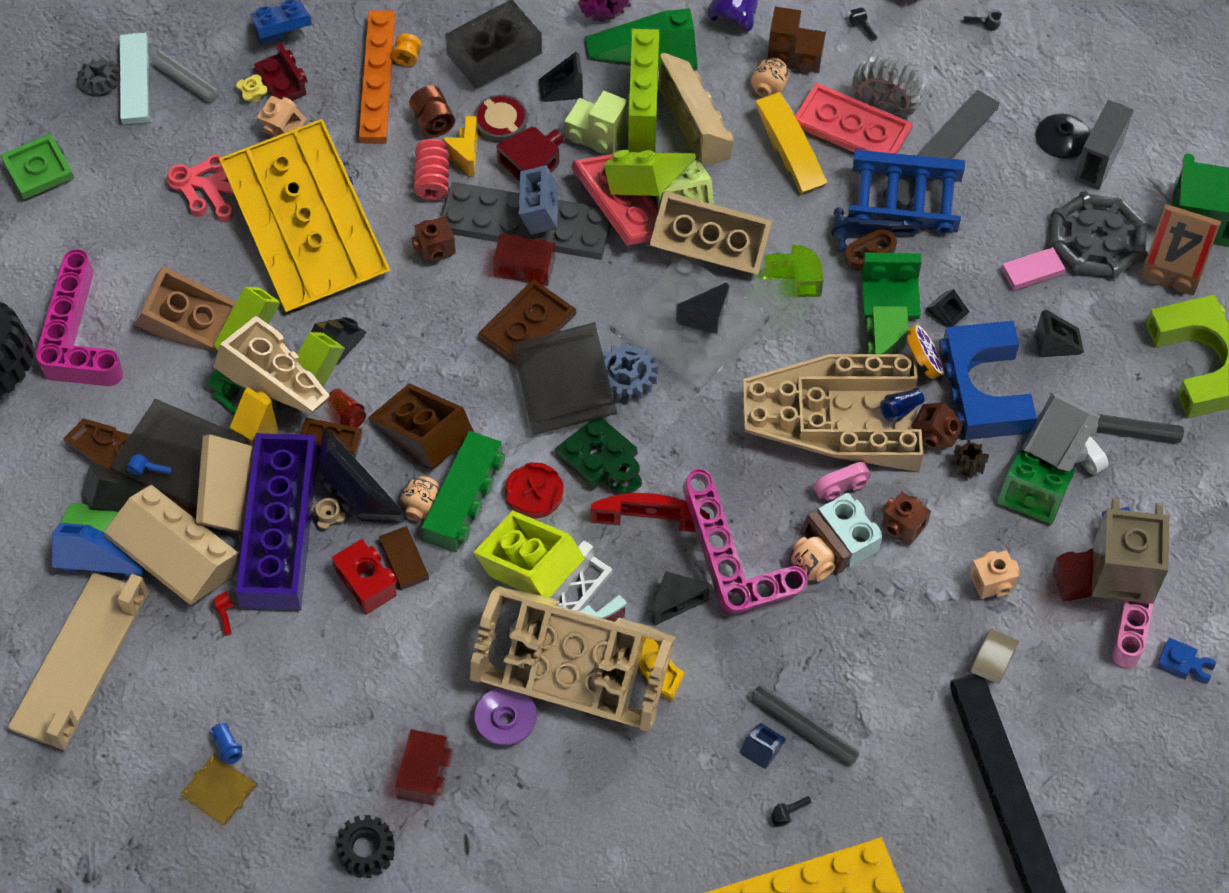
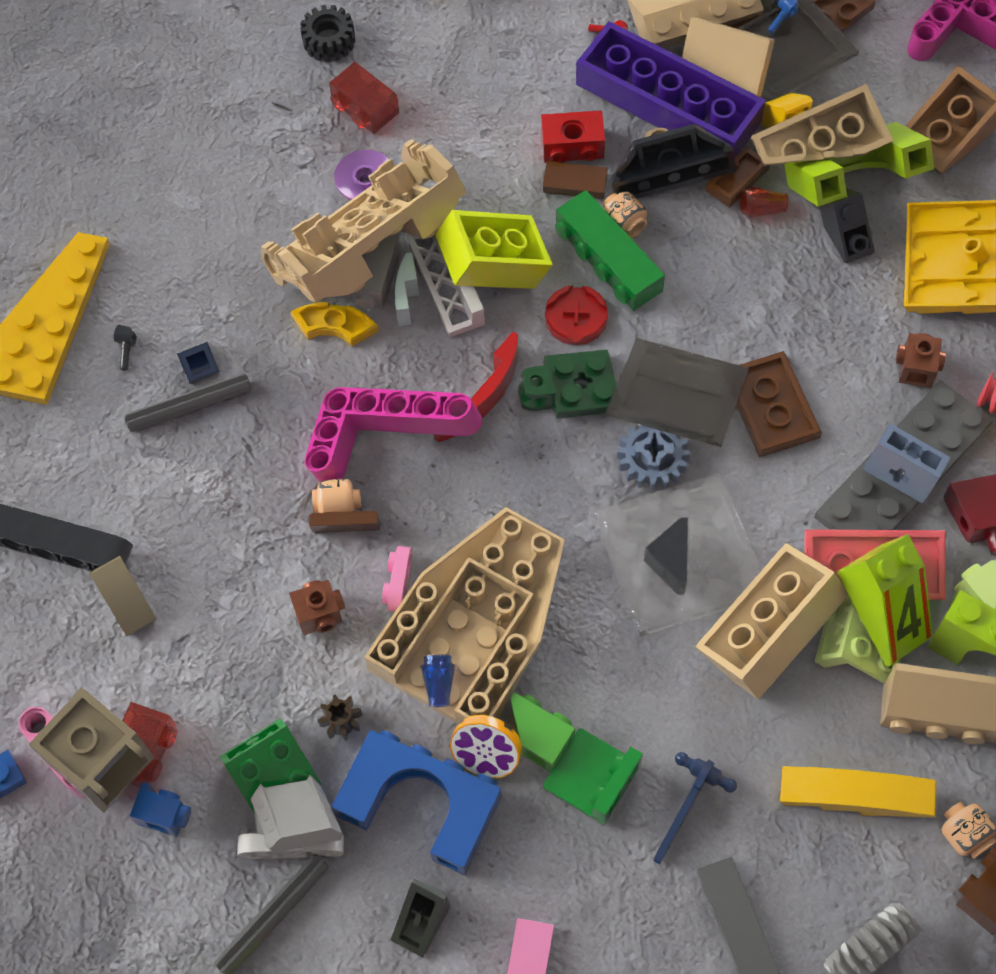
camera: 125 degrees right, 5 degrees up
(422, 424) = (703, 251): reddish brown slope -> none
(524, 259) = (849, 432): clear red brick -> none
(677, 596) = (384, 362): pearl dark grey slope -> none
(801, 266) = (674, 698): clear neon green brick -> none
(851, 122) = (849, 884): coral piece -> none
(856, 526) = (344, 542): light aqua brick -> none
(869, 244) = (660, 791): reddish brown plate -> none
(914, 166) = (727, 907): blue fence -> none
(938, 425) = (394, 704): copper brick -> none
(948, 308) = (537, 827): black slope -> none
(994, 574) = (200, 650): light nougat brick -> none

